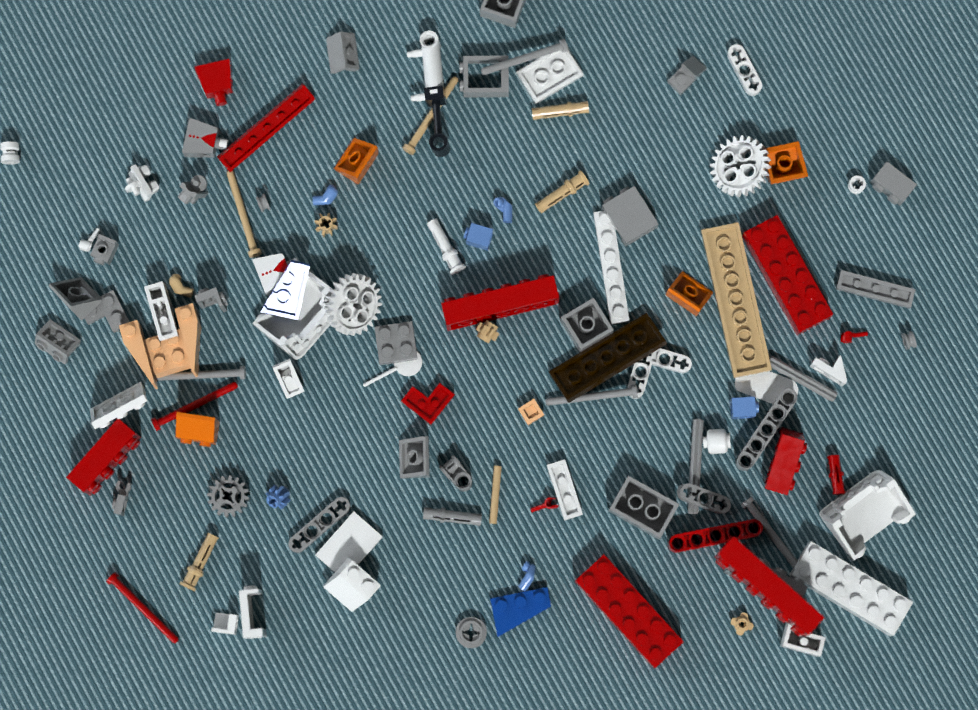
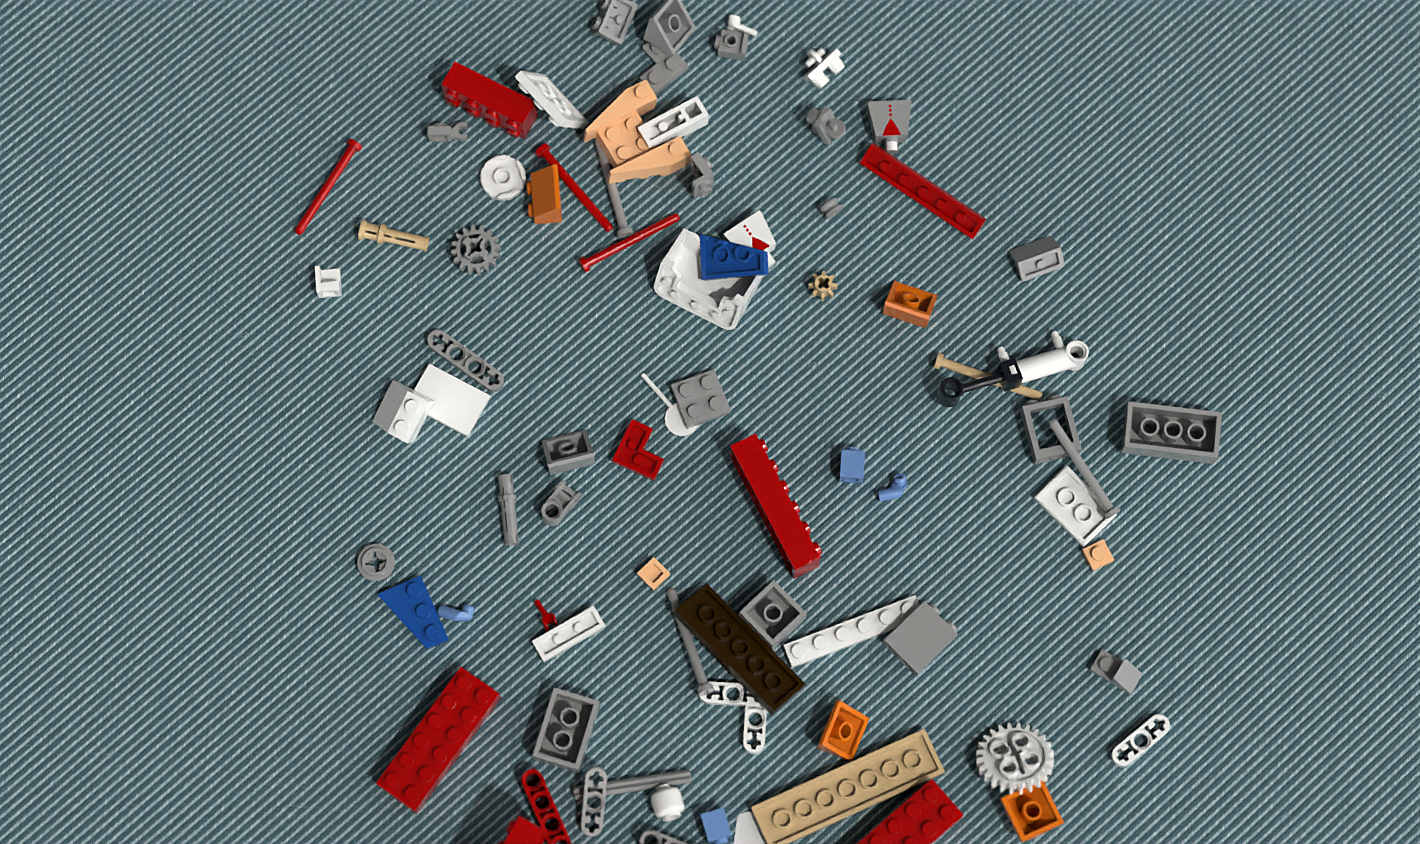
camera: 75 degrees right, 5 degrees down
(170, 462) = (503, 177): none -> white tile
(178, 288) = (708, 137): tan arm -> none
(216, 80) = (966, 121): red torso -> none
(247, 613) = (343, 301): white panel -> none
(254, 251) = (771, 212): tan bar -> none
(261, 410) = (625, 243): none -> red bar
(278, 497) = (487, 305): medium blue gear -> none
(288, 378) = (629, 284): white slope -> none
(327, 198) = (858, 281): medium blue arm -> none
(353, 304) = (734, 355): white gear -> none
(449, 254) = (822, 436): white pin -> none
(487, 331) = (738, 500): tan gear -> none
(495, 495) = (545, 555): tan bar -> none
(560, 110) = (1030, 524): tan pin -> none
(569, 187) = (938, 559): tan pin -> none
(592, 66) = (1097, 555): none -> light nougat plate

